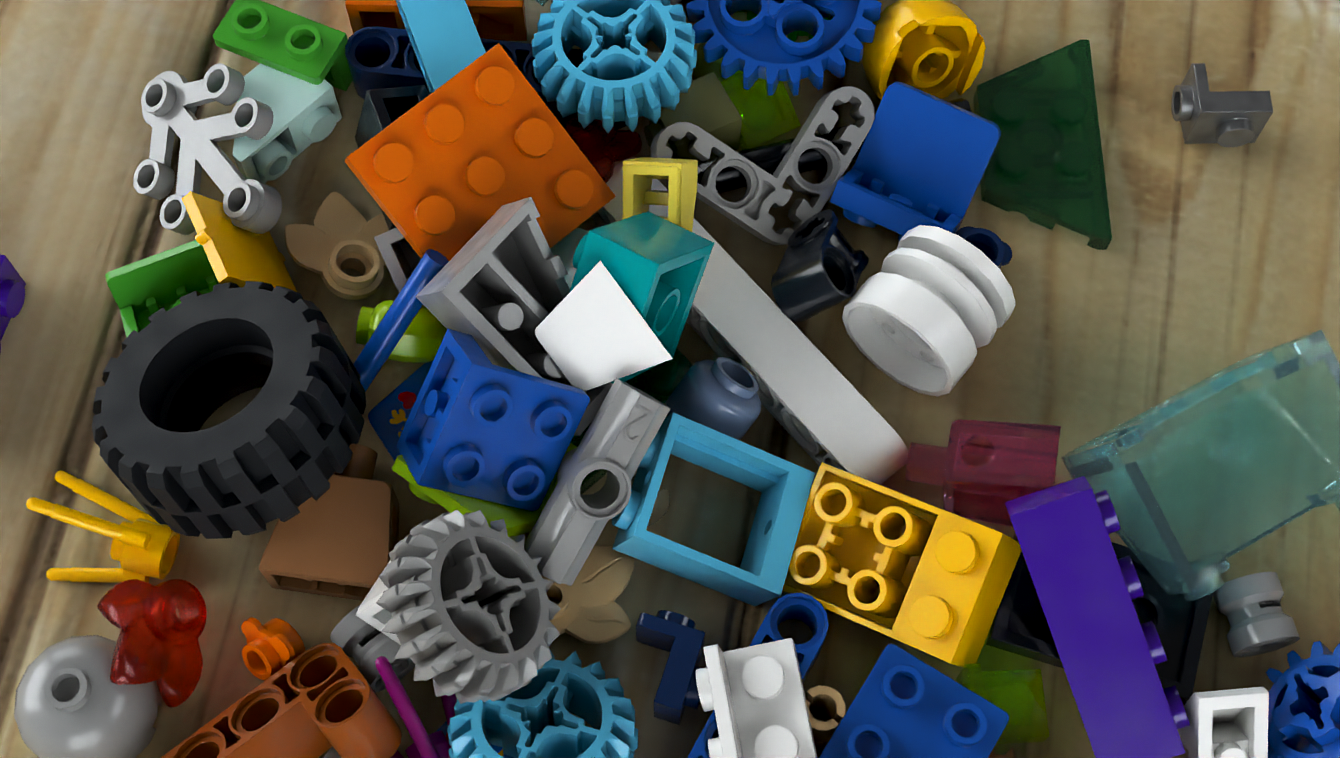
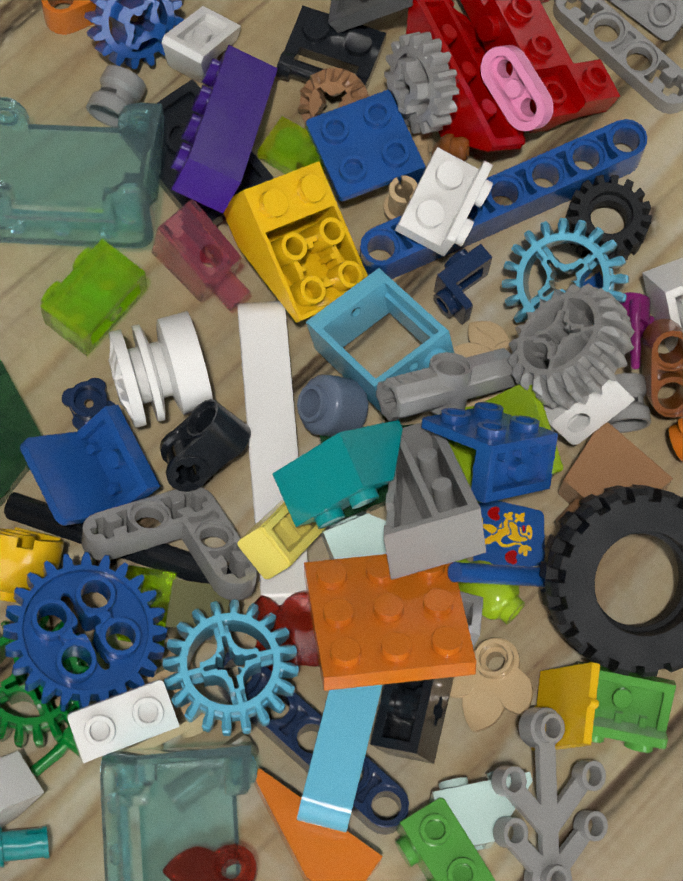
camera: 150 degrees left, 5 degrees up
(599, 333) = (394, 441): white sticker -> none
(1069, 354) = (93, 296): none -> clear neon green brick

